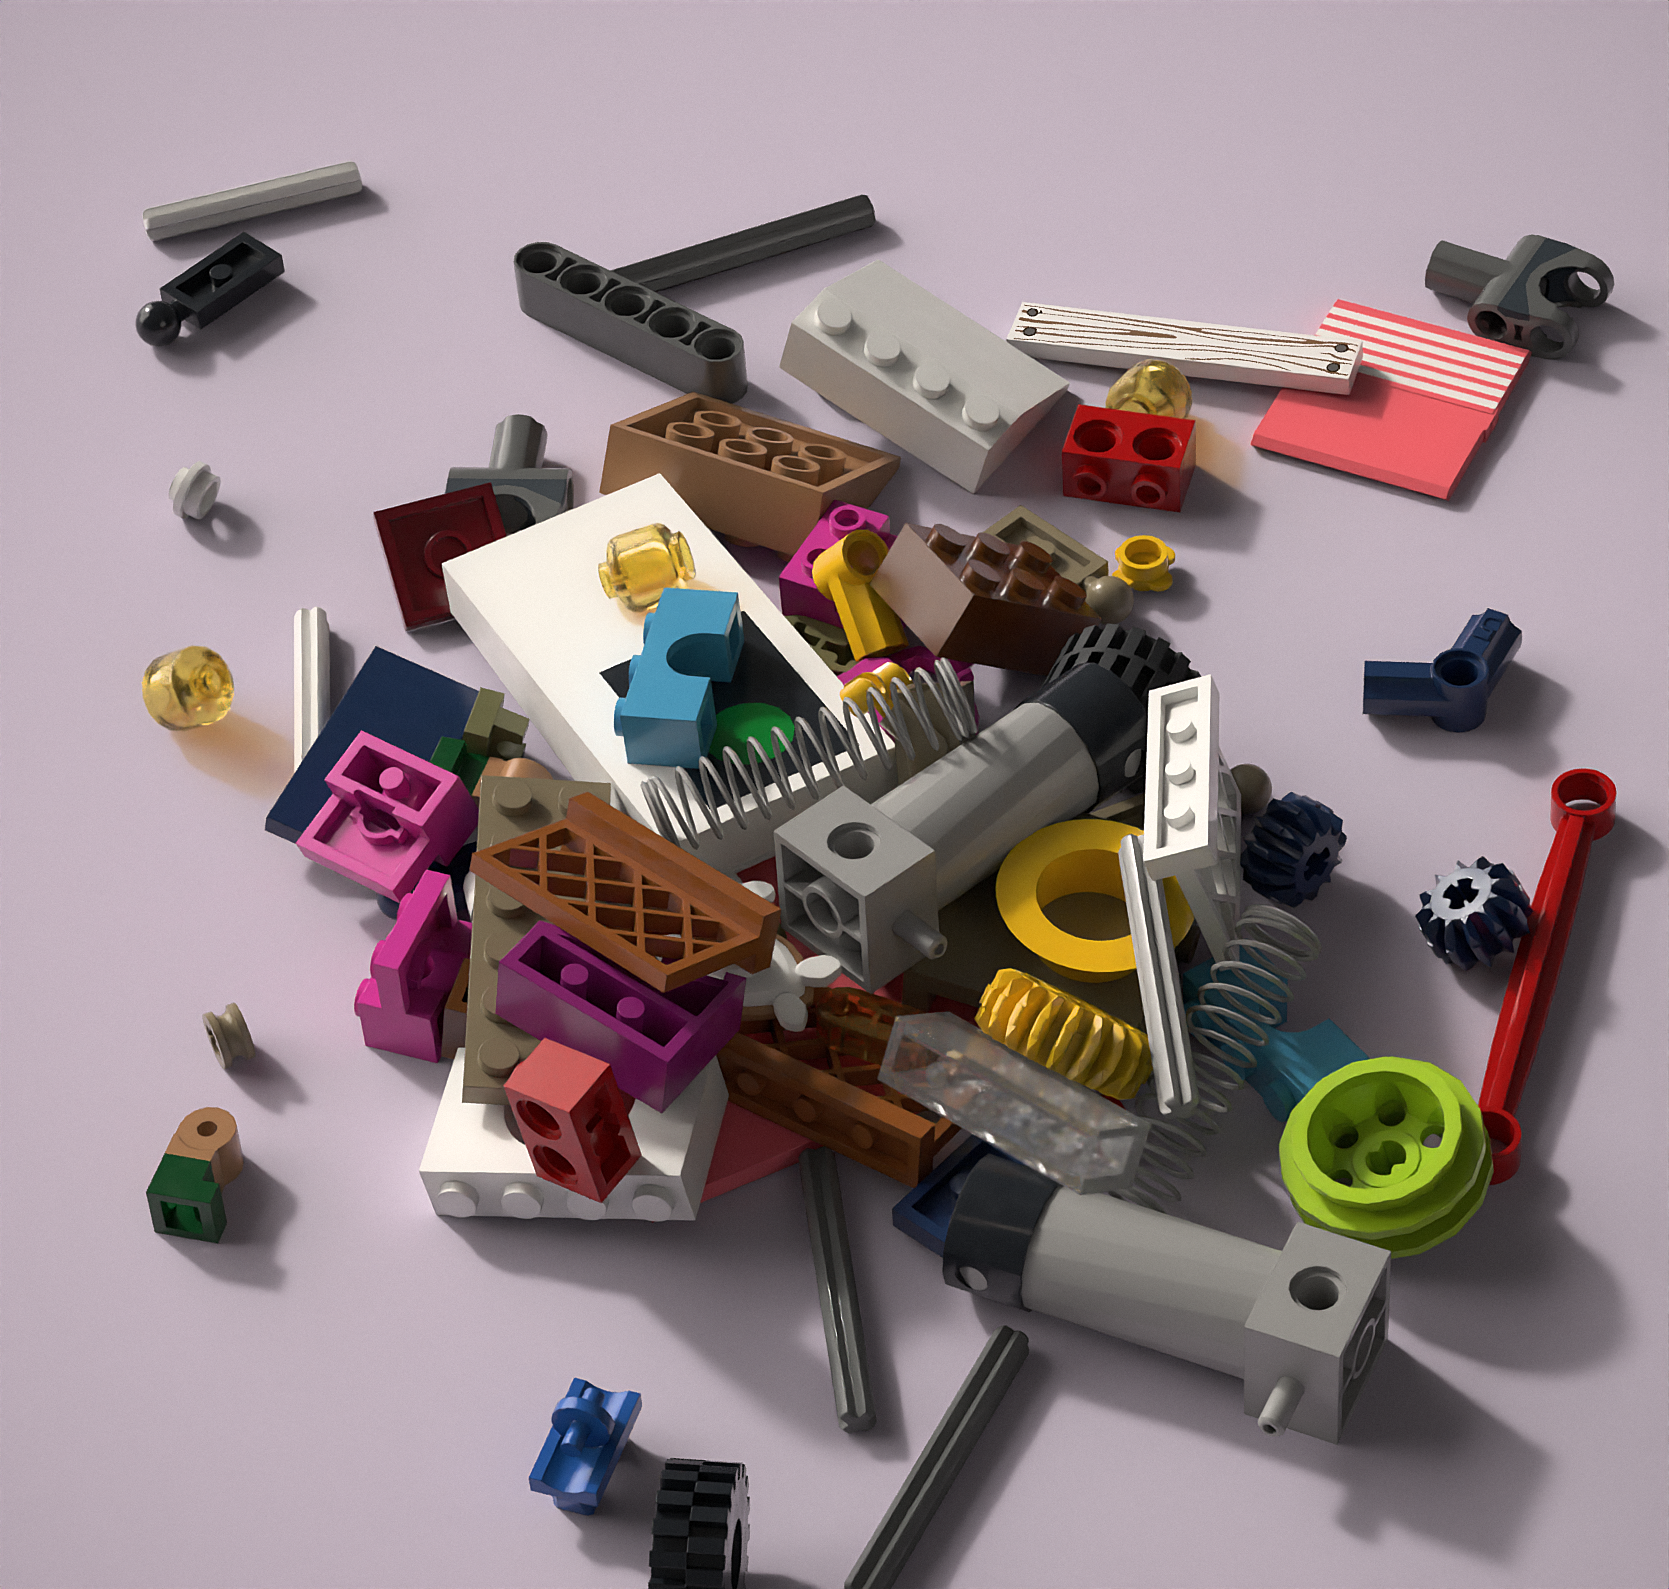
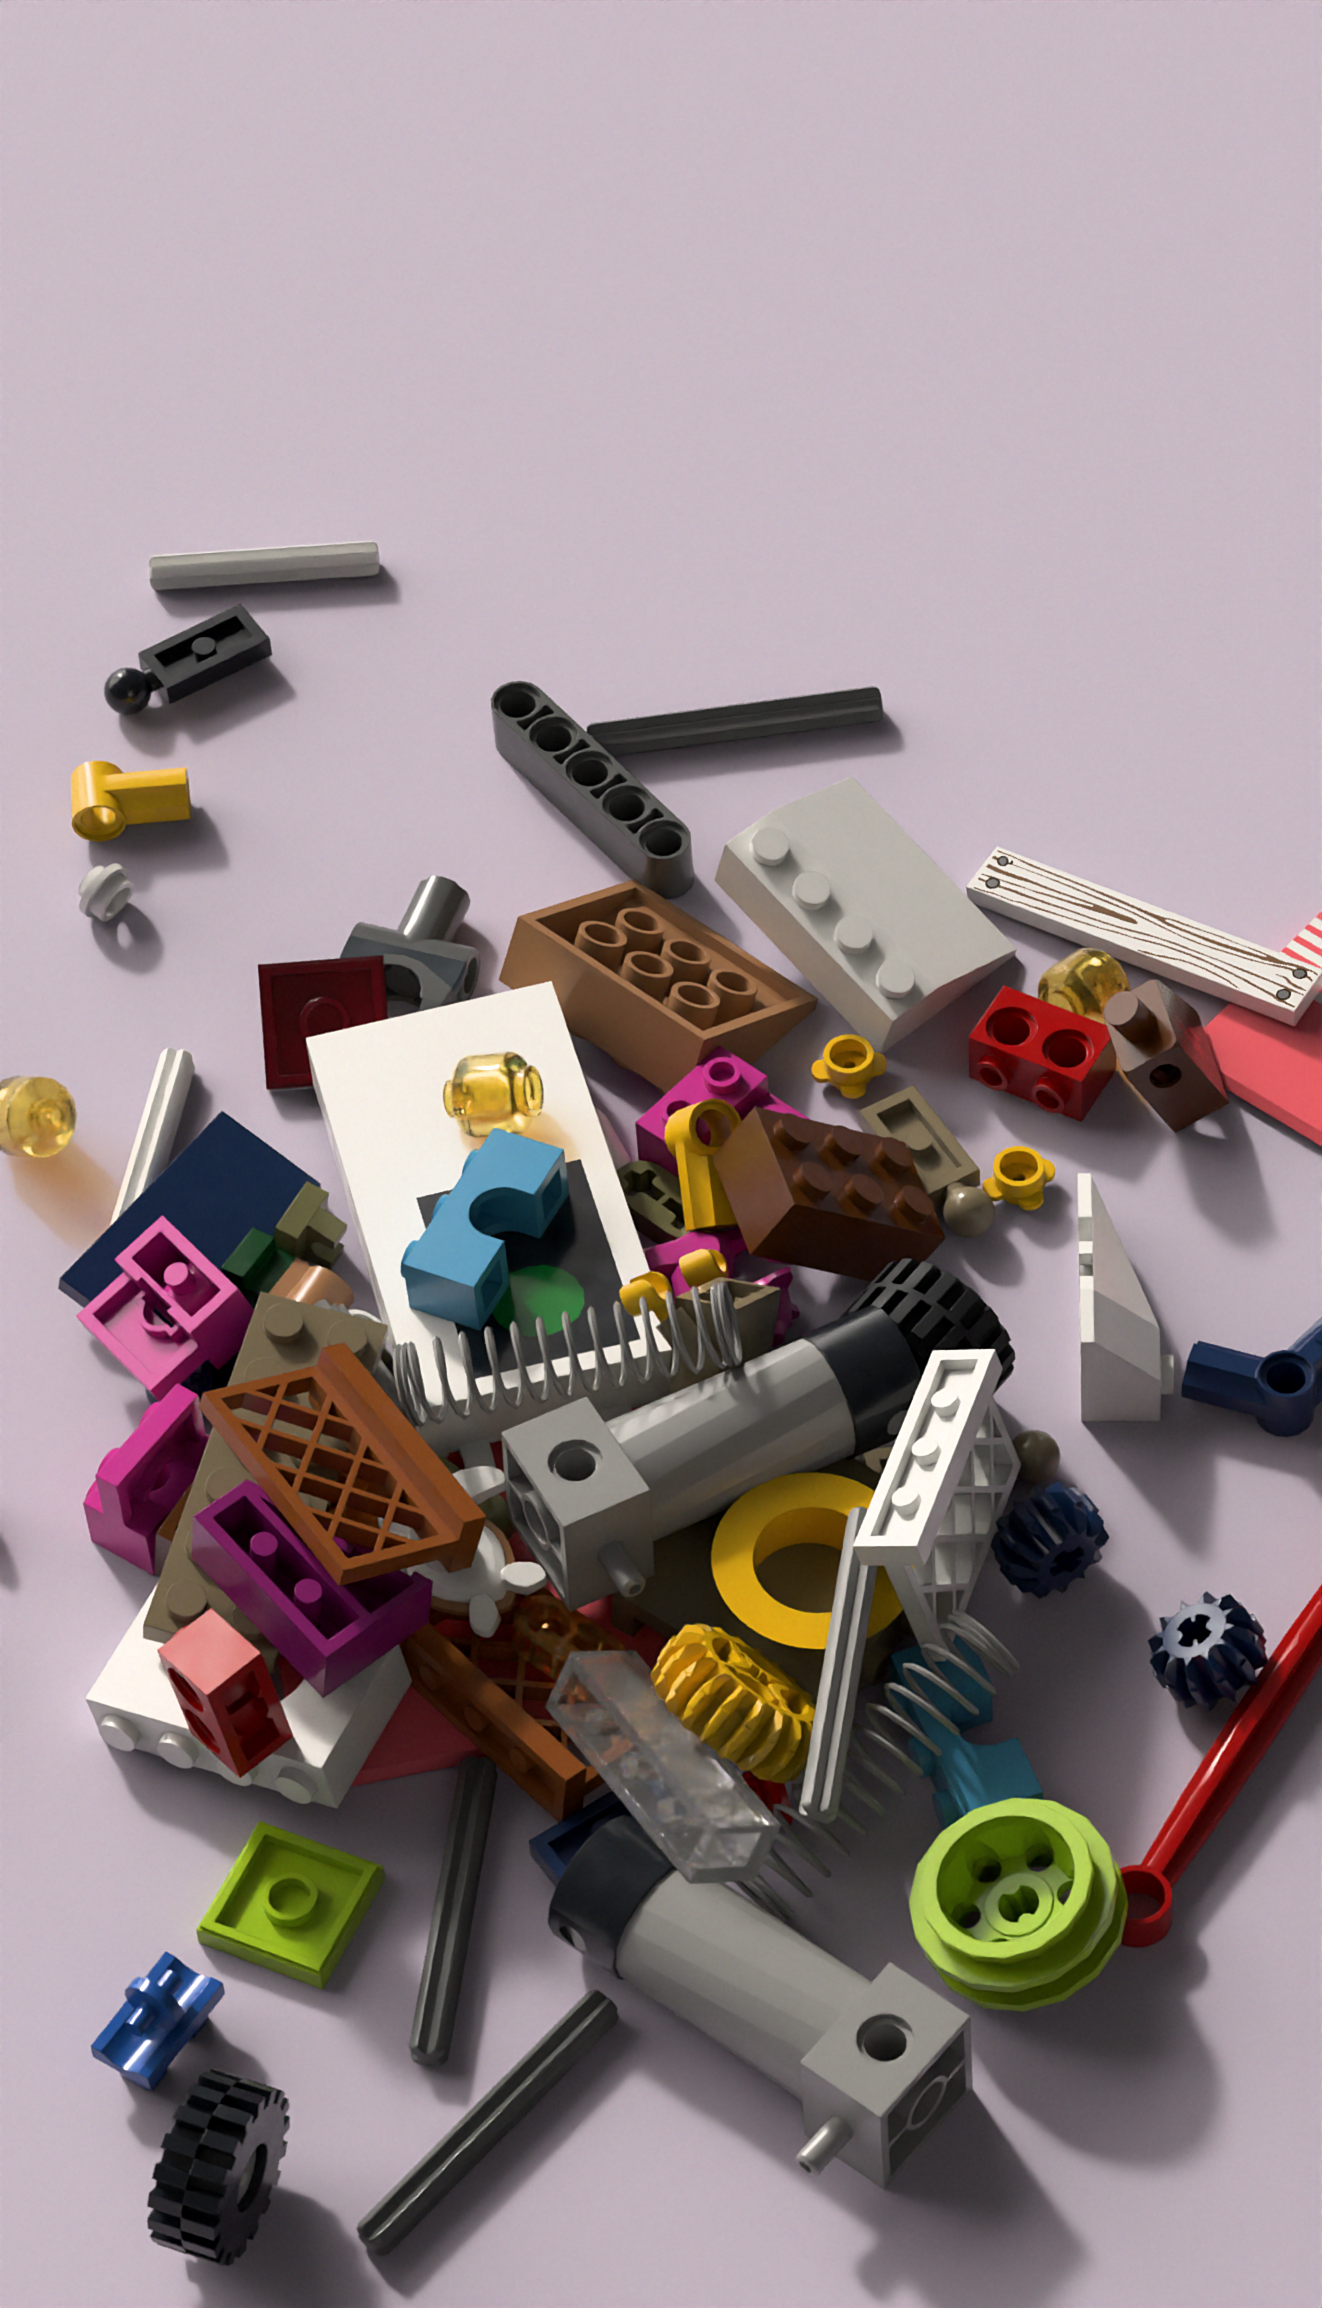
camera: 15 degrees right, 5 degrees up
(173, 415) = (109, 799): none -> yellow piece
(674, 1318) = (290, 1904): none -> lime tile
(951, 502) = (849, 1065): none -> yellow plate
(1233, 415) = (1160, 1029): none -> reddish brown torso
(1281, 664) = (1118, 1331): none -> white wedge

